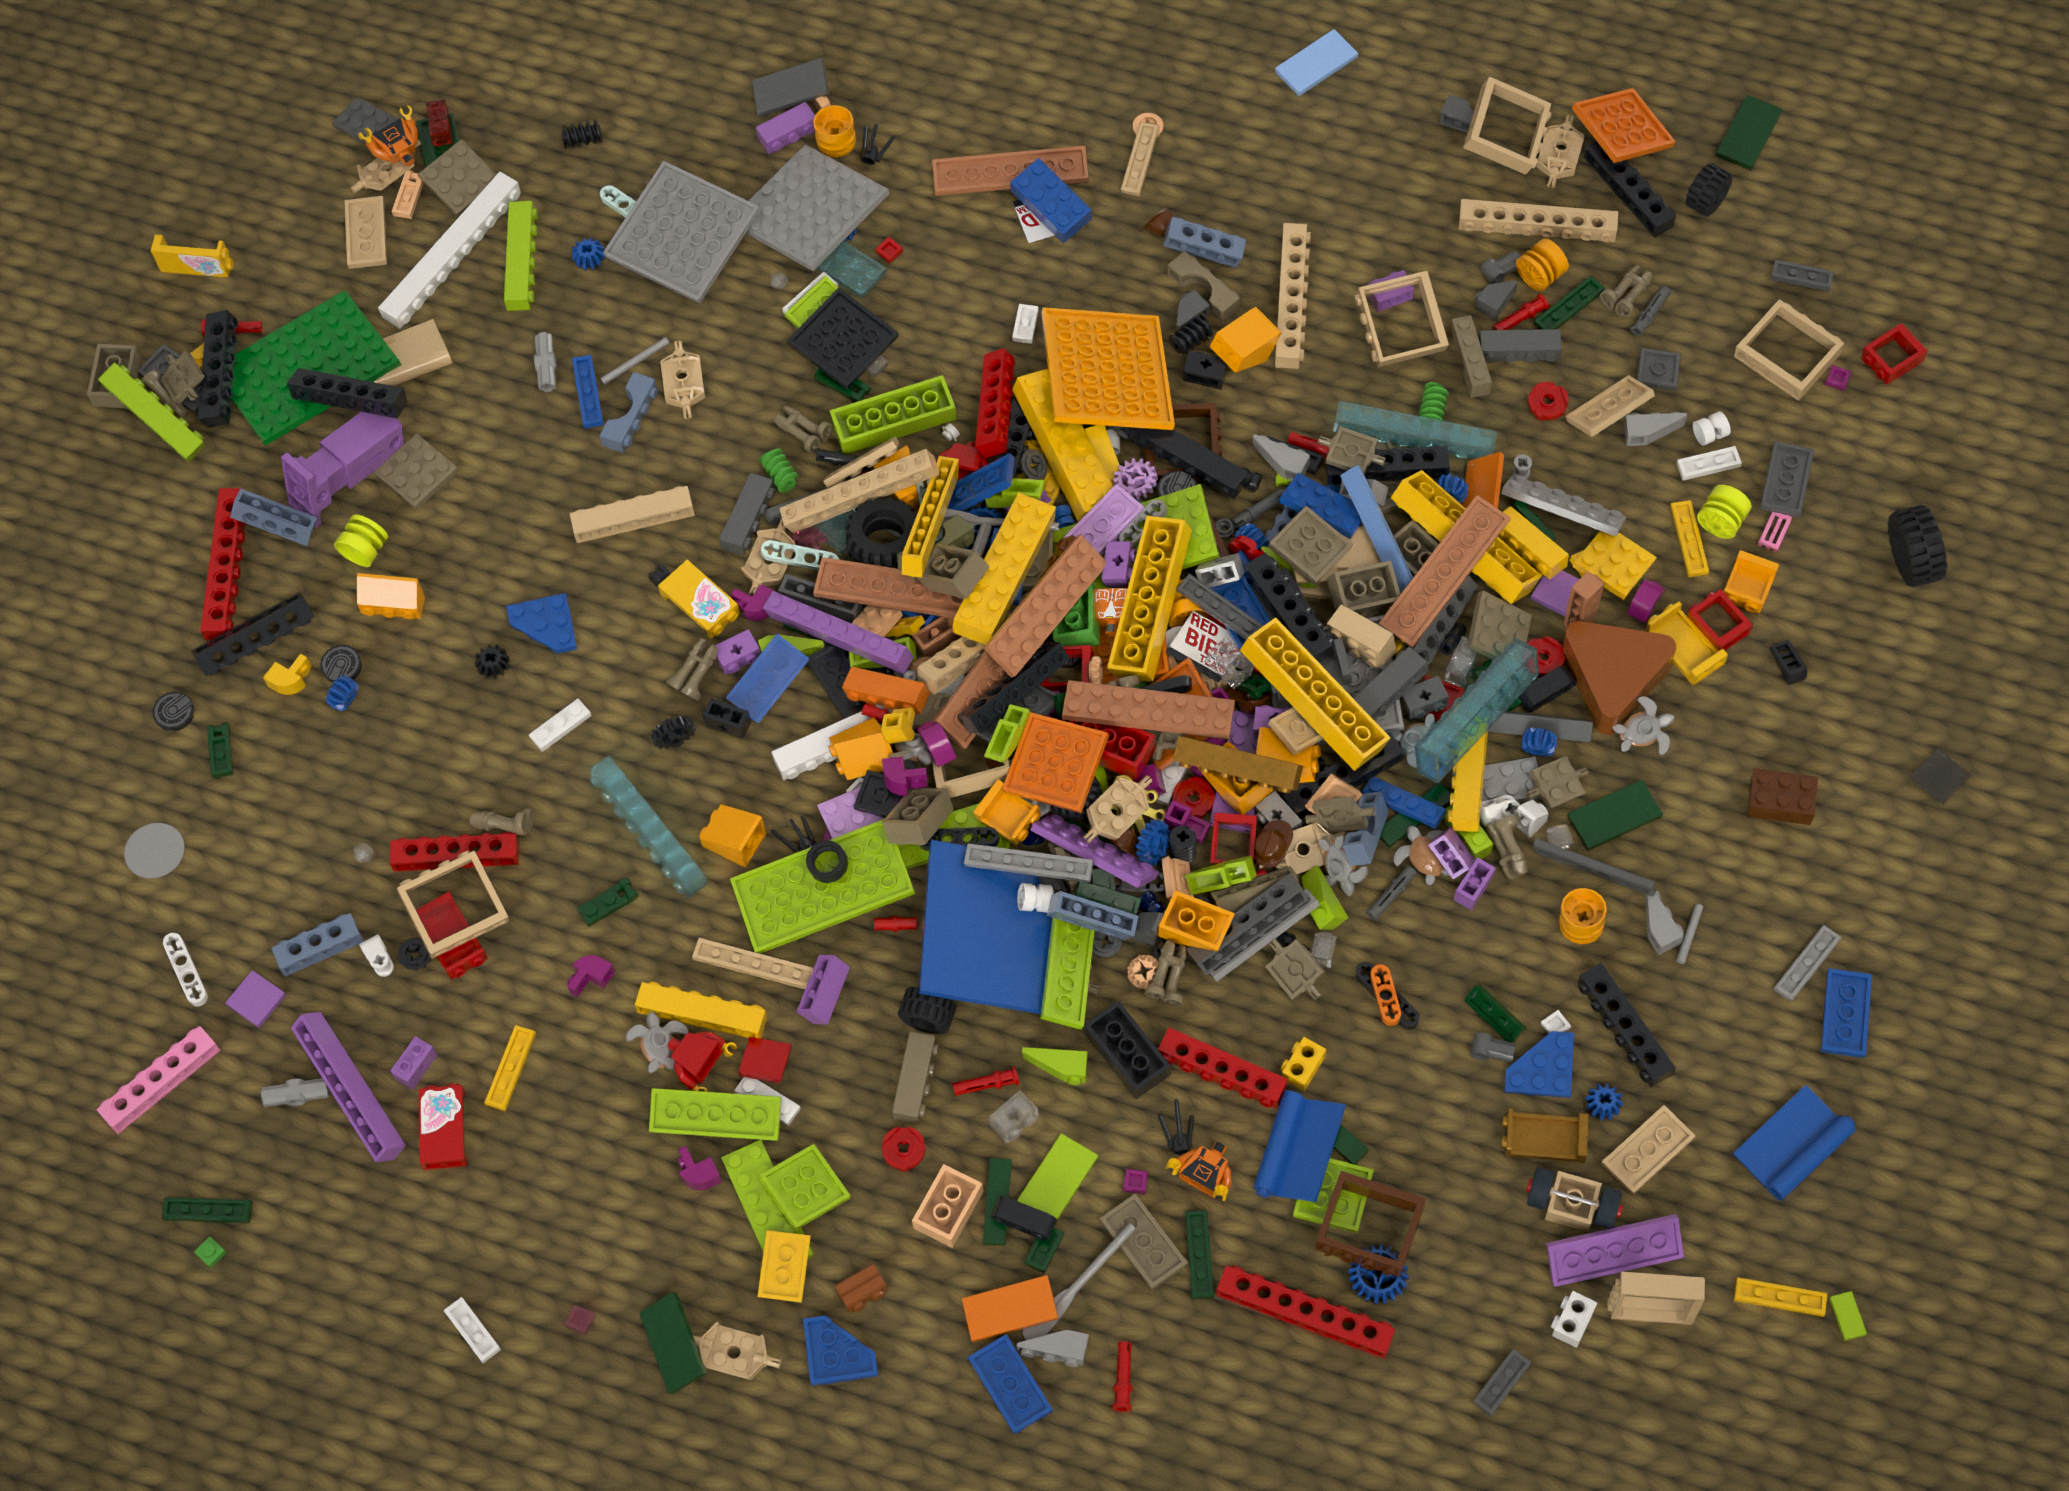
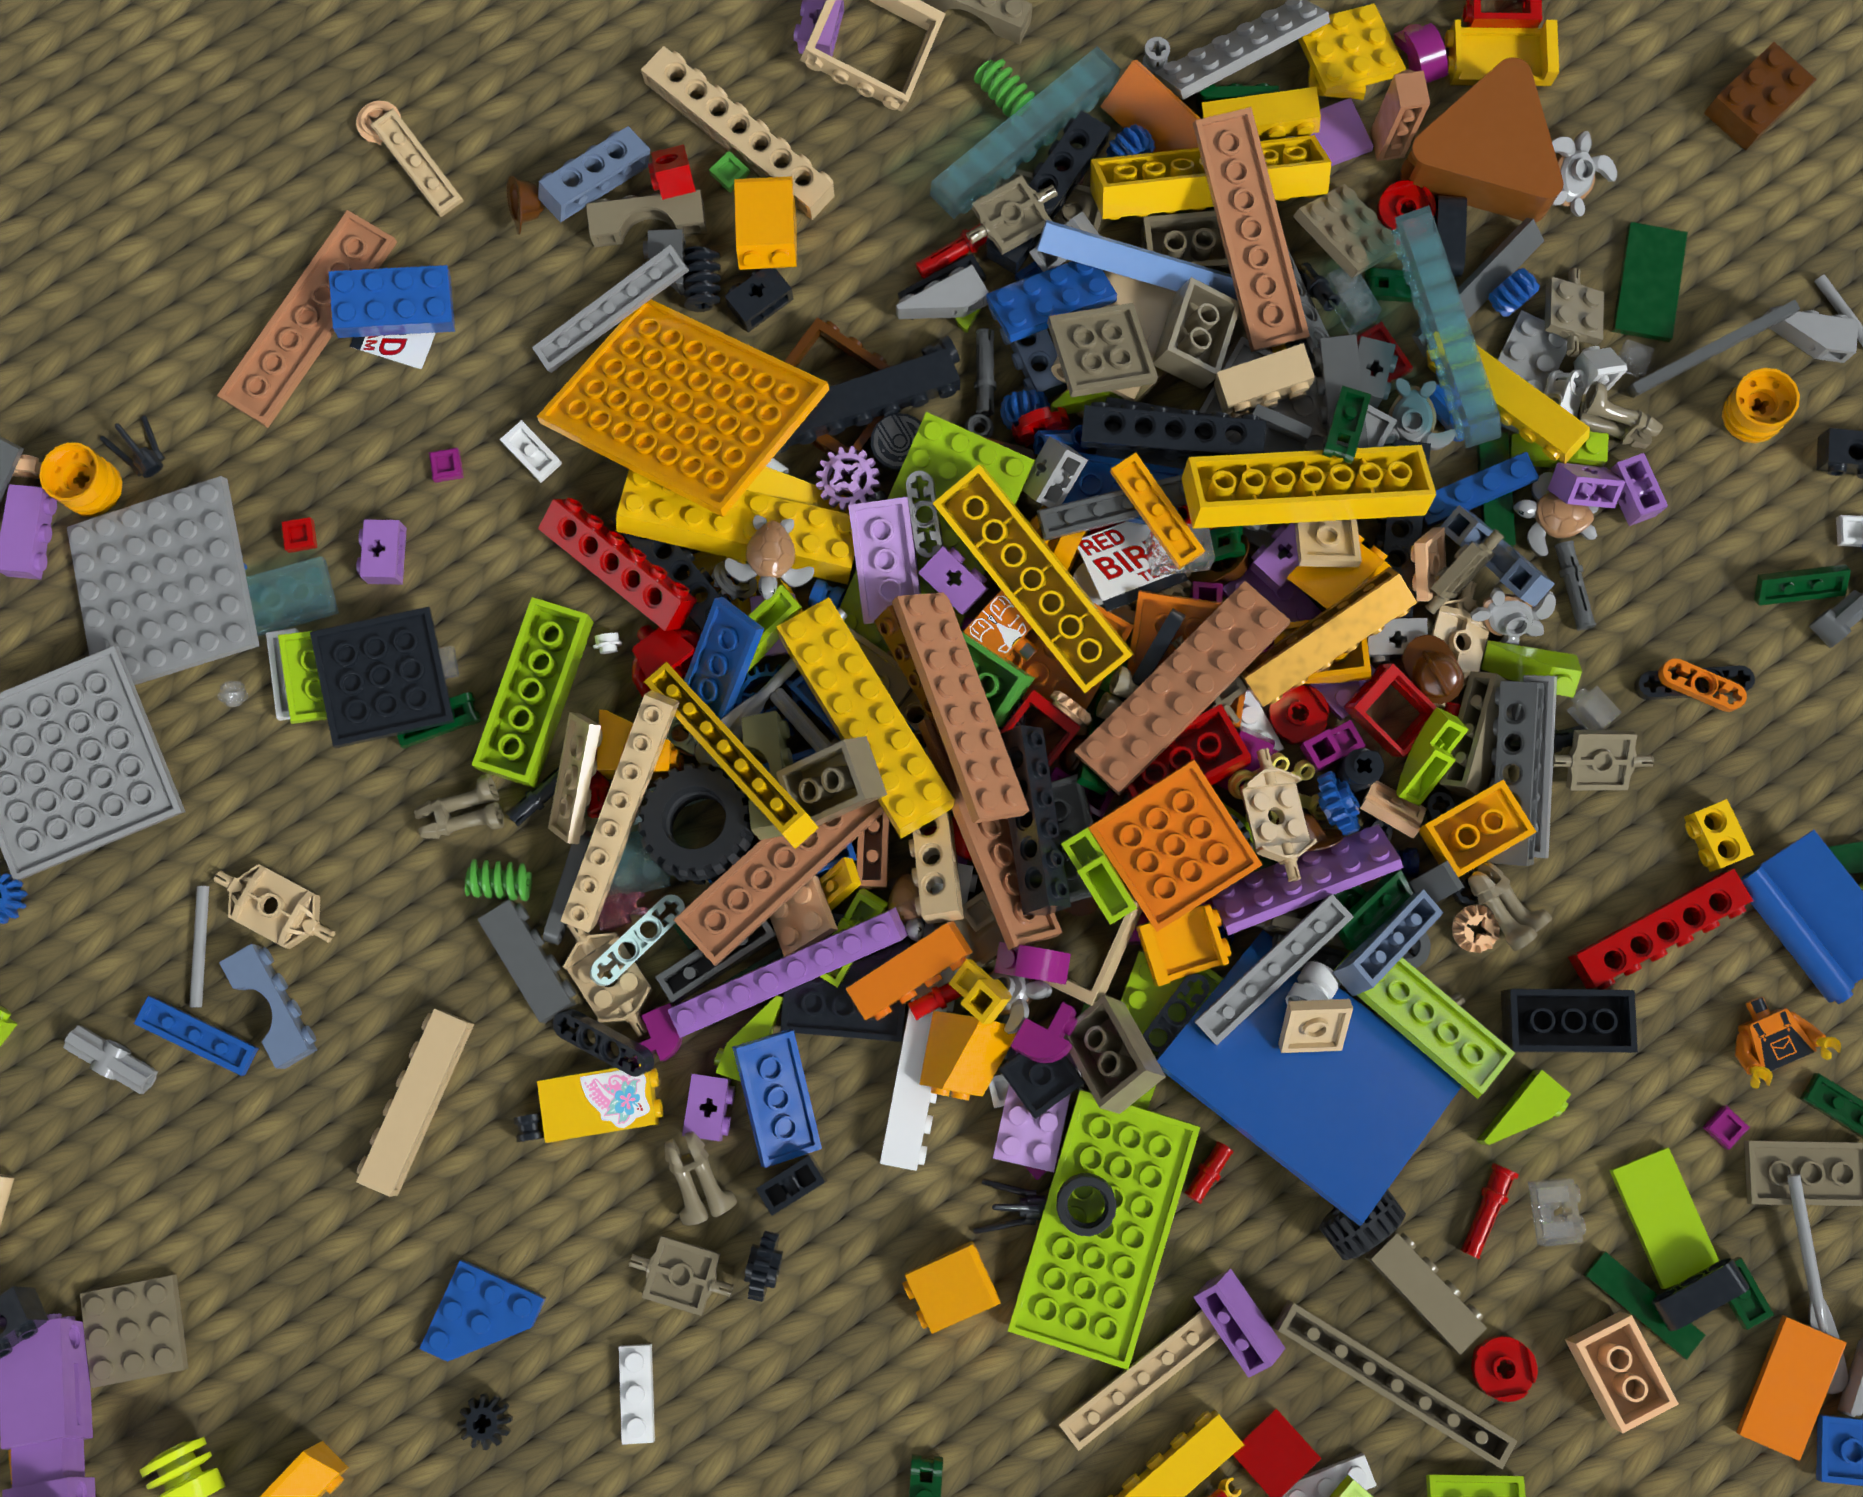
camera: 55 degrees left, 15 degrees up
(638, 702) = (681, 1275): none -> dark tan plate
(648, 826) = (861, 1383): clear light blue brick -> none
(732, 571) = (602, 1047): none -> black beam
(850, 1091) = (1395, 1384): none -> dark tan brick
(911, 294) = (389, 565): none -> medium lavender brick
(985, 291) = (446, 465): none -> magenta tile
(1013, 903) = (1315, 1025): none -> tan plate
(1055, 465) = (771, 557): none -> animal
(1135, 303) = (610, 308): none -> light grey plate
(1180, 1143) = (1716, 1040): black plant -> none
(1236, 629) = (1157, 511): none -> light orange plate
(1237, 278) = (671, 172): none -> red brick
(1266, 305) = (727, 170): none -> bright green plate
(1366, 688) = (1347, 424): none -> dark green plate

